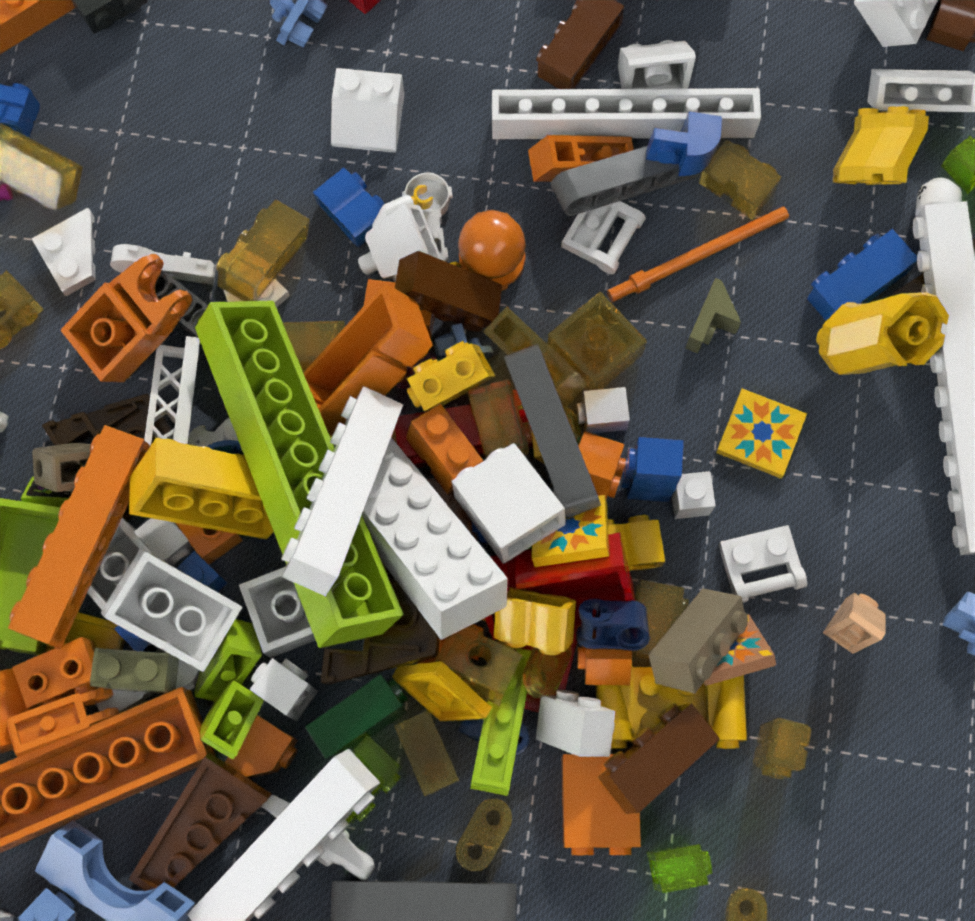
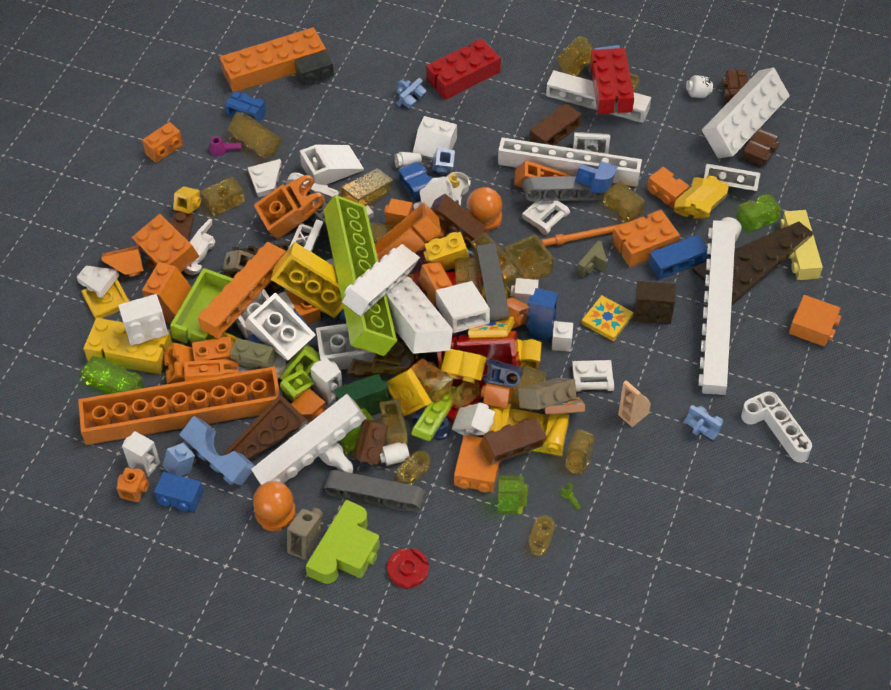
camera: 10 degrees right, 20 degrees down
(183, 200) = (329, 163): none -> white slope
(323, 163) = (406, 158): none -> white cone
(337, 297) = (397, 211): none -> orange brick
(393, 158) = (443, 161): none -> medium blue brick
(396, 810) = (370, 441): none -> reddish brown brick
(441, 813) = (394, 453): none -> white brick
(779, 829) = (569, 494): none -> clear neon green hand
(795, 250) = (644, 237): none -> orange piece
(811, 133) = (666, 187): none -> orange brick
(845, 393) = (654, 302): none -> dark brown brick
(883, 333) = (687, 271): yellow brick -> none

